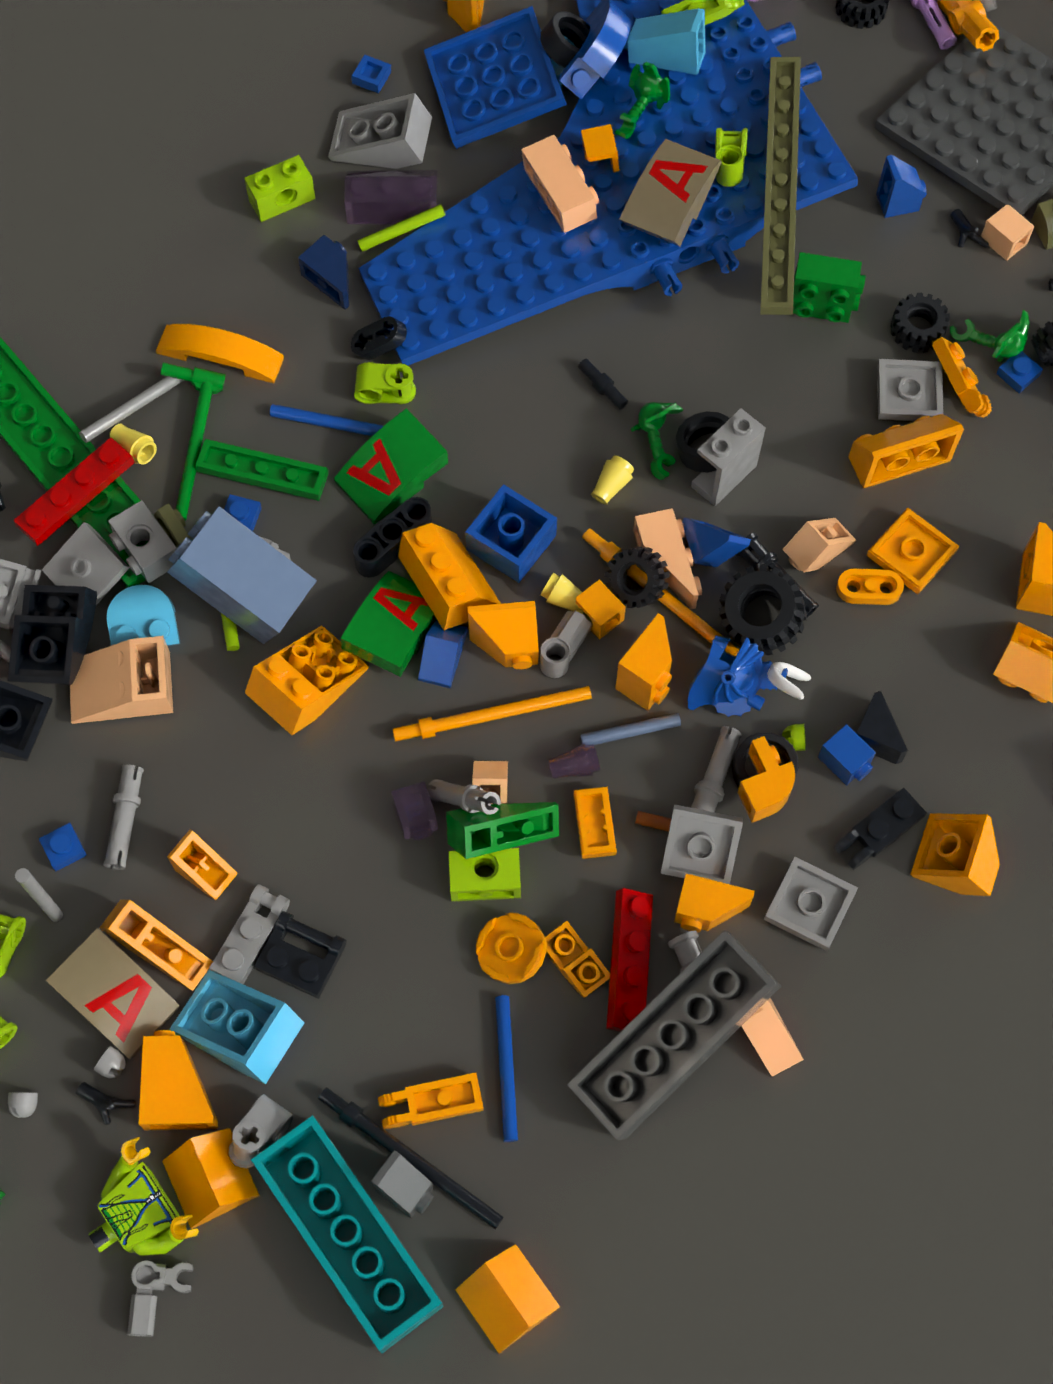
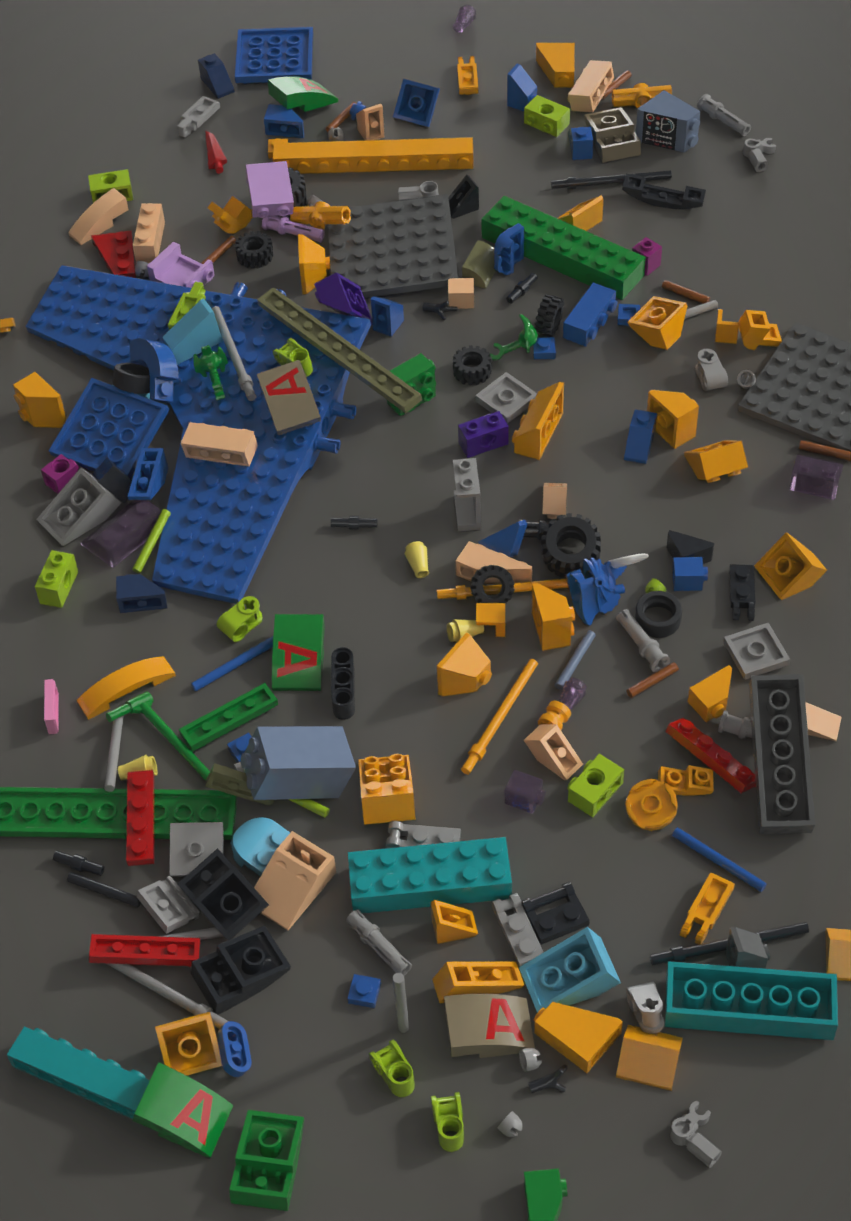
camera: 45 degrees left, 15 degrees down
(134, 310) = (51, 706): none -> bright pink tile
(138, 1209) = (639, 1103): torso -> none
(140, 525) = (207, 792): light grey brick -> none
(236, 802) = (424, 873): none -> teal brick
(280, 762) = (419, 835): none -> light grey plate
(371, 73) = (32, 485): blue plate -> none
(378, 333) = (211, 599): black beam -> none
(389, 624) = (398, 721): green slope -> none
(406, 79) = (59, 473): none -> magenta brick
(440, 134) = (113, 479): none -> black slope
(441, 654) = (439, 712): blue slope -> none
(444, 573) = (396, 674): light orange slope -> none
(468, 797) = (552, 748): light grey pin -> none
(469, 158) = (148, 474): none -> blue slope
(507, 828) = (577, 754): green slope -> none
(511, 533) = (404, 624): blue brick -> none
(524, 768) = (555, 713): none -> light orange wheel
(564, 643) = (495, 650): light grey piece -> none
(594, 822) = (614, 713): light orange plate -> none
(600, 144) = (220, 408): light orange panel -> none
(650, 420) = (403, 514): green piece -> none
(687, 96) = (244, 380): none -> light grey bar
(692, 428) = (435, 490): black tyre -> none
(701, 844) = (677, 670): light grey plate -> none
(772, 786) = (676, 609): light orange brick -> none
(833, 408) = (483, 434): none -> dark purple brick
(864, 132) = (342, 296): none -> dark purple slope
(868, 585) = (598, 499): light orange plate -> none
(891, 64) = (311, 263): none -> light orange slope
(913, 550) = (599, 463): light orange plate -> none
(962, 378) = (526, 370): light orange hinge -> none
(989, 561) = (640, 436): none -> blue slope

